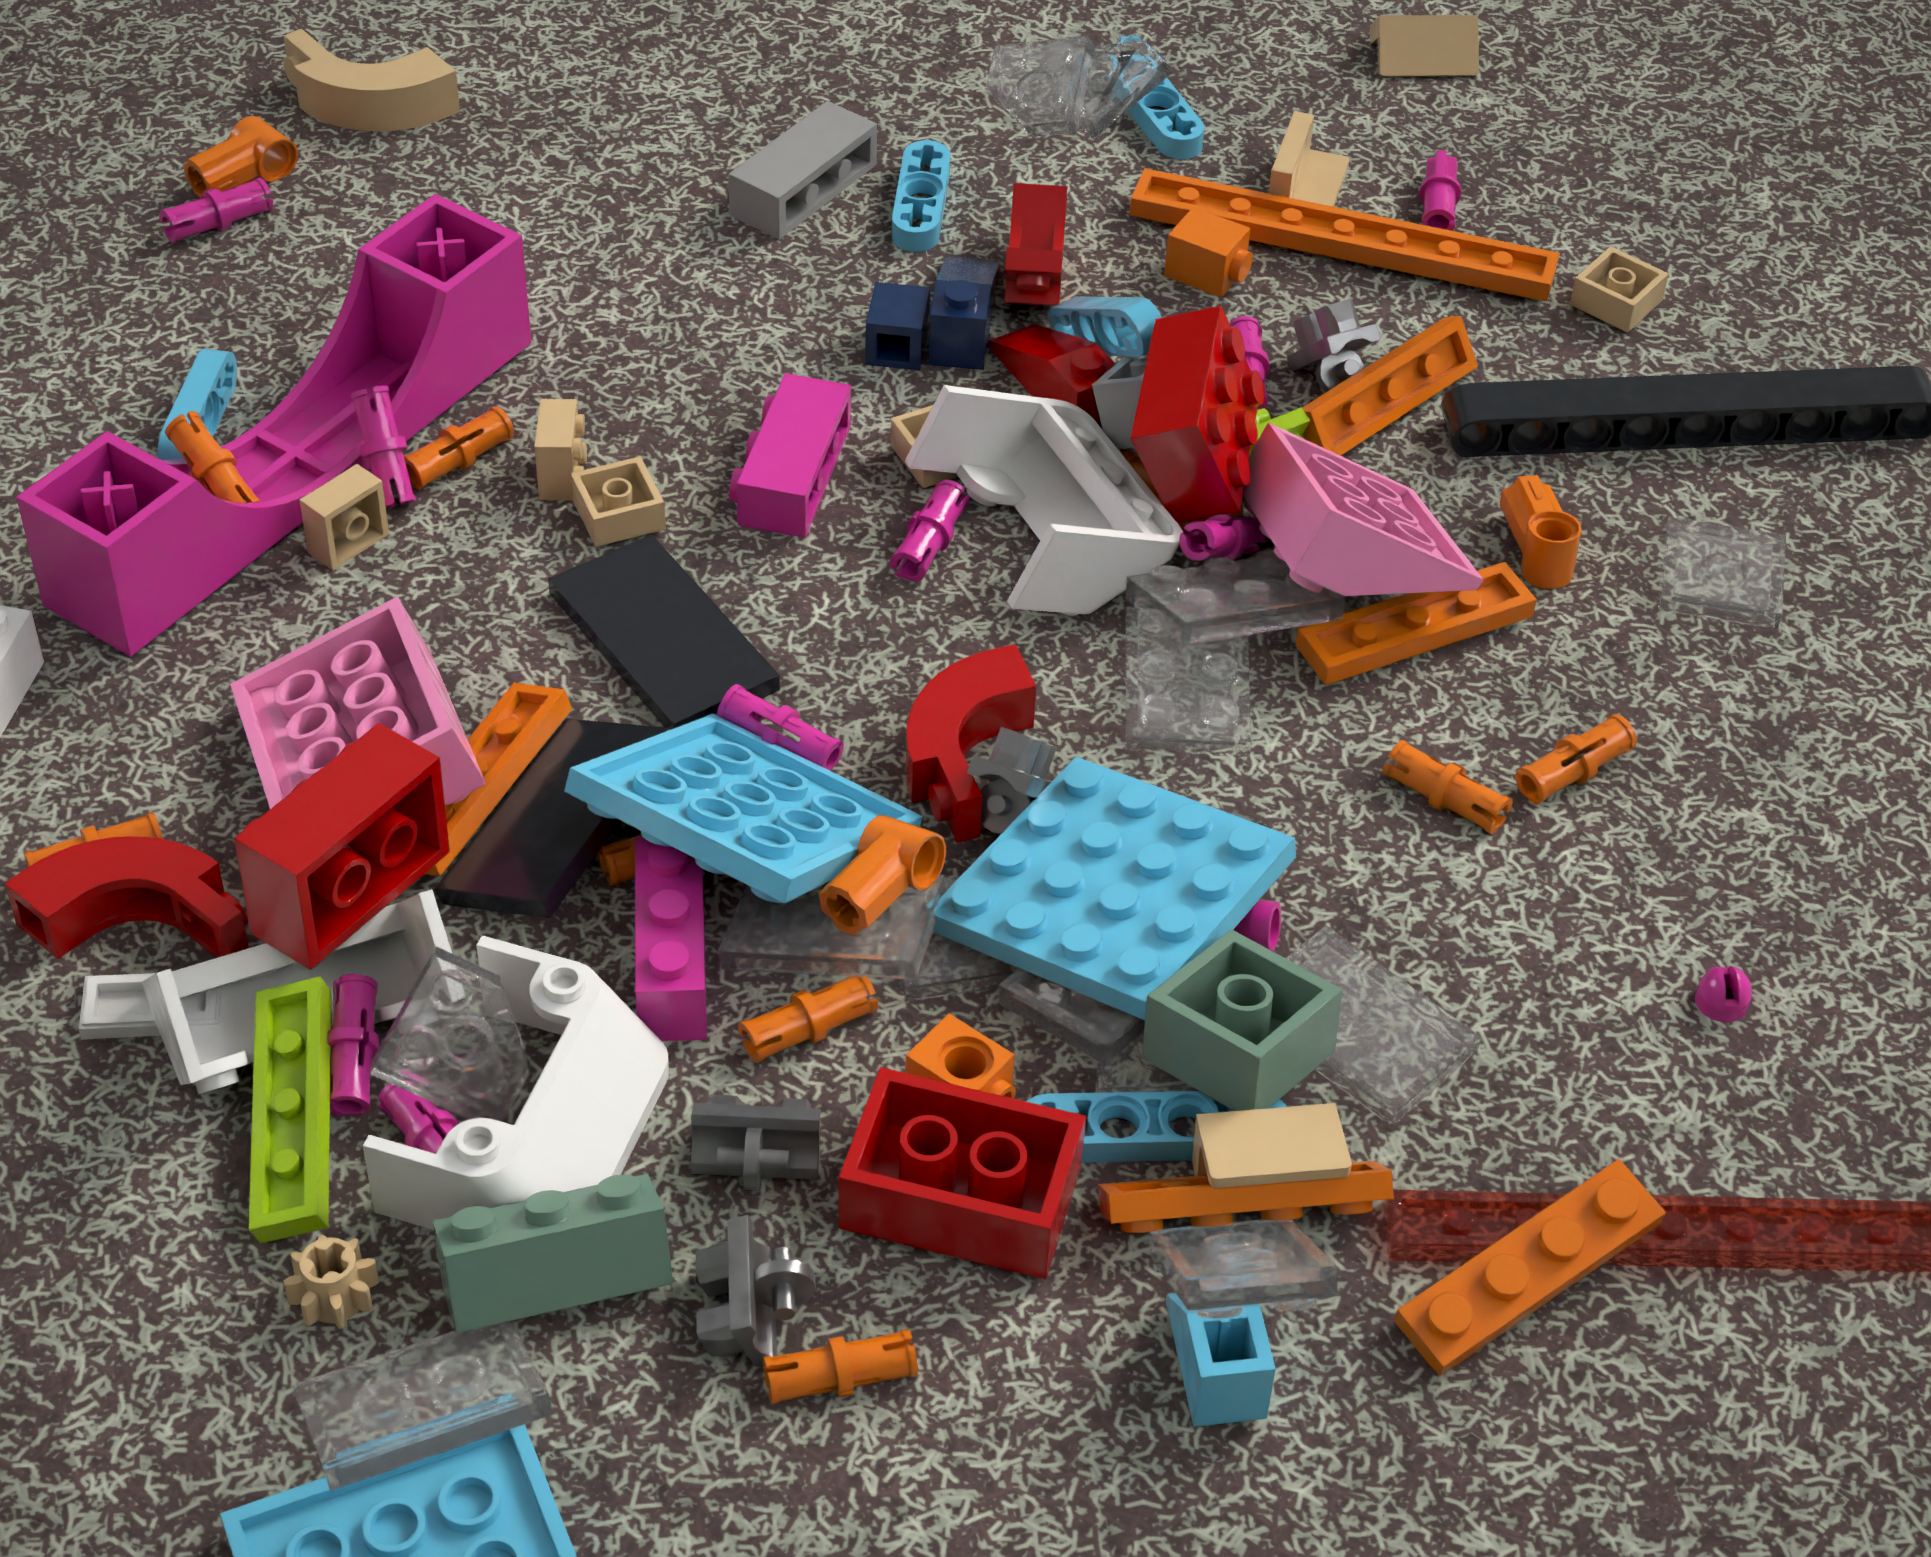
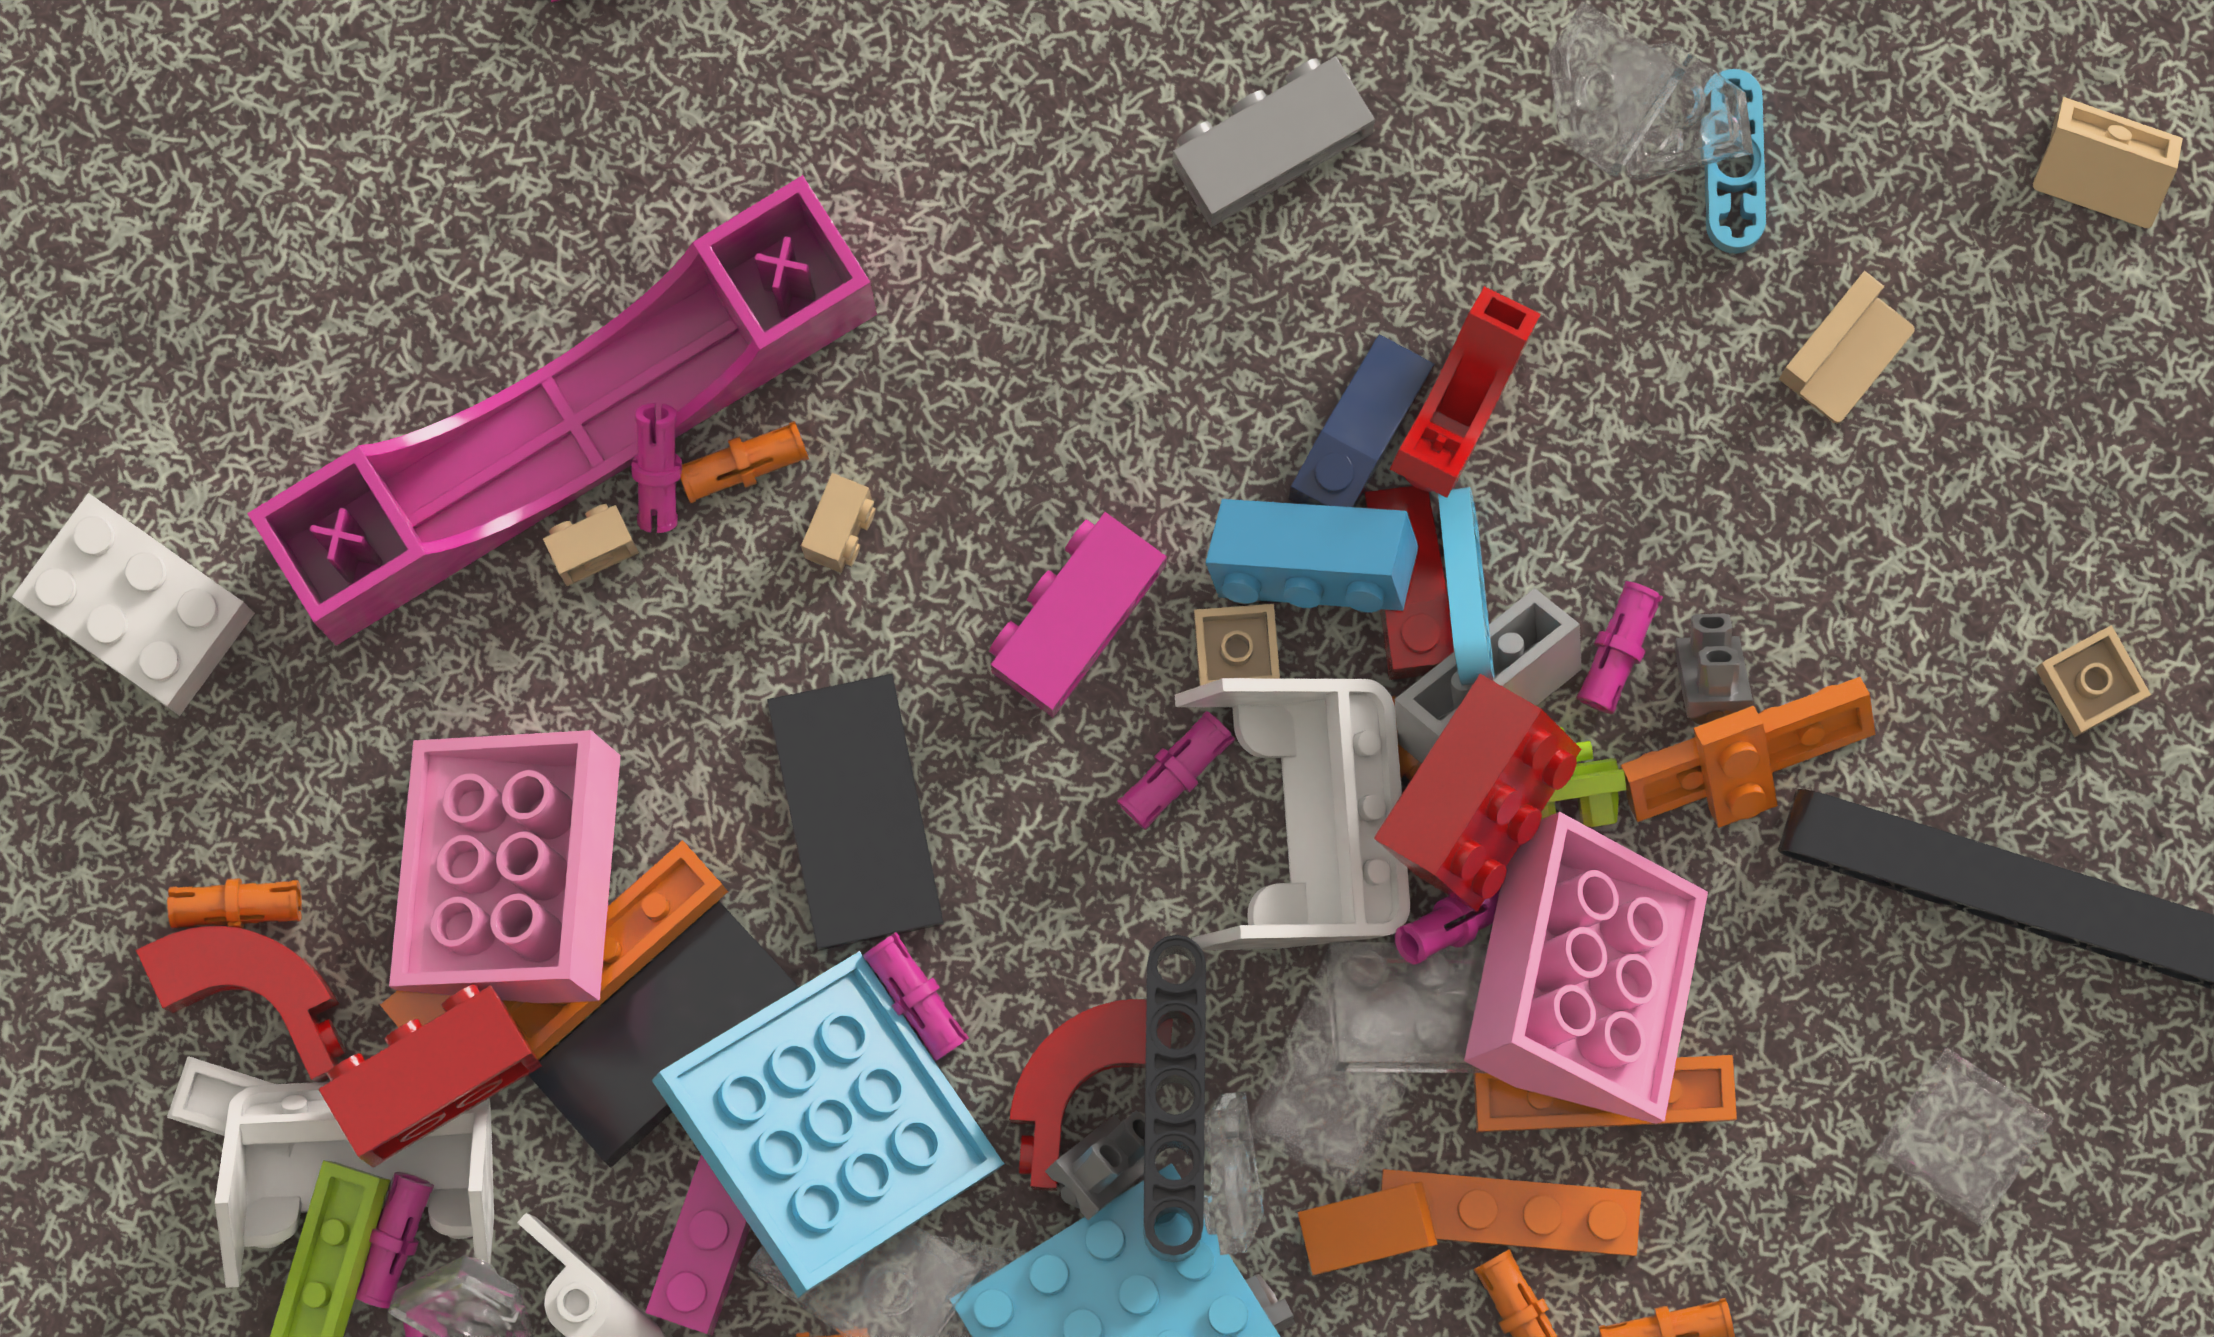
camera: 25 degrees right, 35 degrees up
(205, 392) = (494, 313): medium azure beam -> none
(208, 461) = (472, 455): orange pin -> none
(618, 501) = (874, 613): tan piece -> none
(887, 863) = (932, 1252): orange piece -> none
(897, 326) = (1269, 448): dark blue brick -> none
(927, 209) = (1429, 189): medium azure beam -> none
(972, 348) = (1312, 555): none -> dark azure brick
(1058, 683) = (1179, 1066): none -> black beam
(1137, 731) = (1235, 1199): none -> clear plate
(1208, 252) = (1662, 455): orange brick -> none
(1275, 757) = (1367, 1228): none -> orange tile
(1352, 235) = (1833, 472): orange plate -> none
(1371, 728) = (1528, 1212): none -> orange plate
(1387, 385) = (1735, 766): none -> orange plate
(1440, 191) = (1984, 436): dark pink axle -> none
(1543, 532) = (1799, 1012): orange piece -> none

